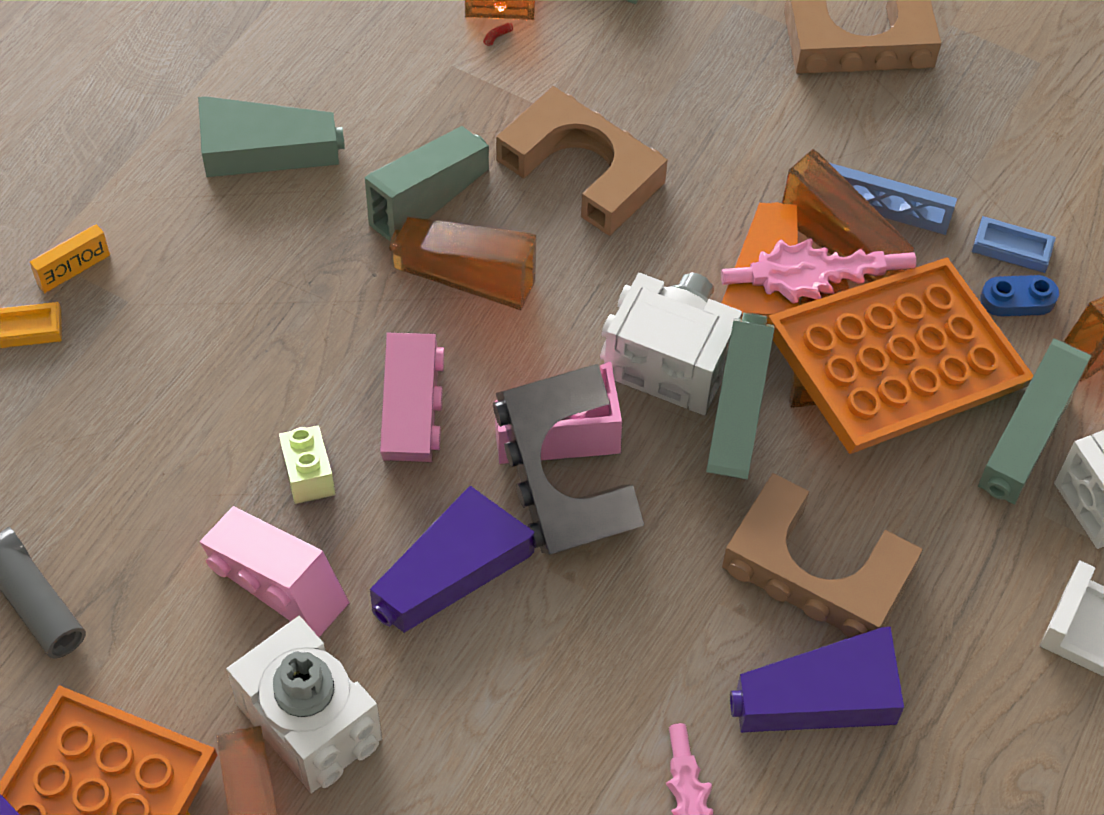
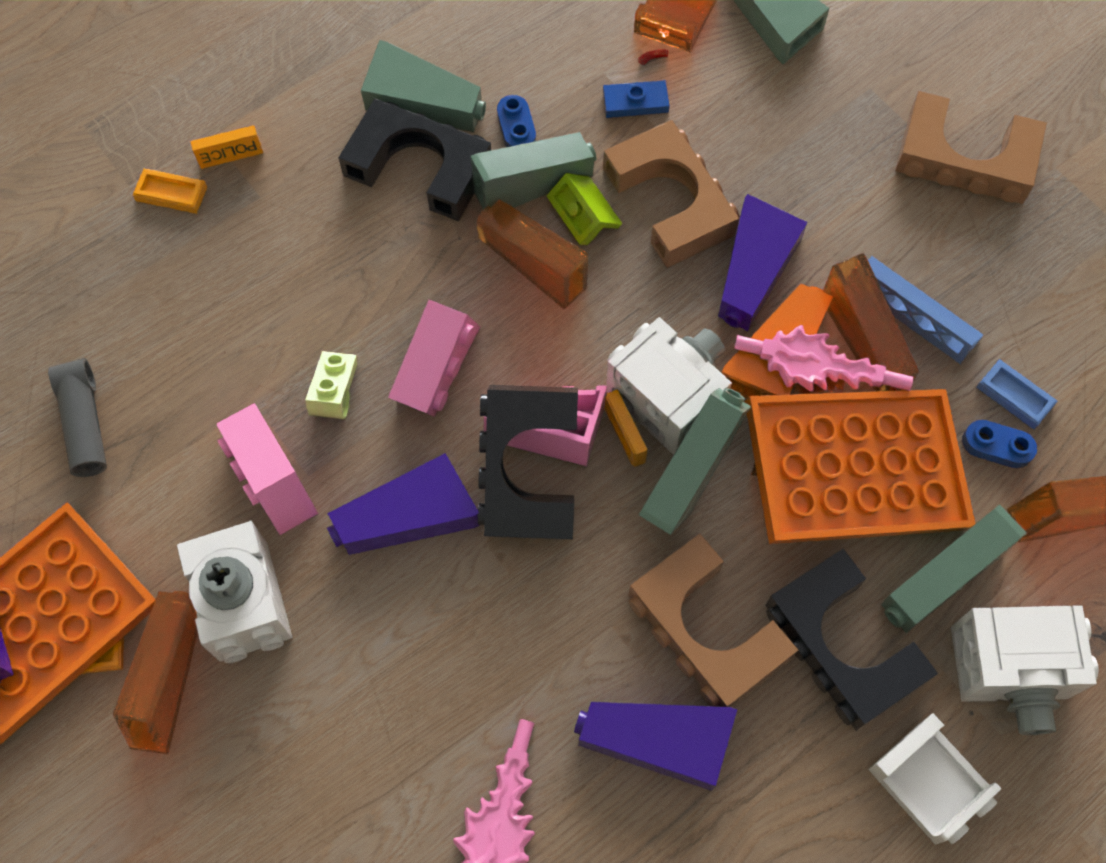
camera: 25 degrees right, 10 degrees up
(251, 184) = (390, 129): none -> black arch
(378, 136) = (515, 121): none -> blue plate
(493, 201) = (582, 207): none -> lime panel
(499, 80) = (636, 98): none -> blue plate
(646, 402) = (625, 428): none -> light orange tile
(700, 196) = (759, 256): none -> dark purple slope
(993, 571) = (858, 692): none -> black arch

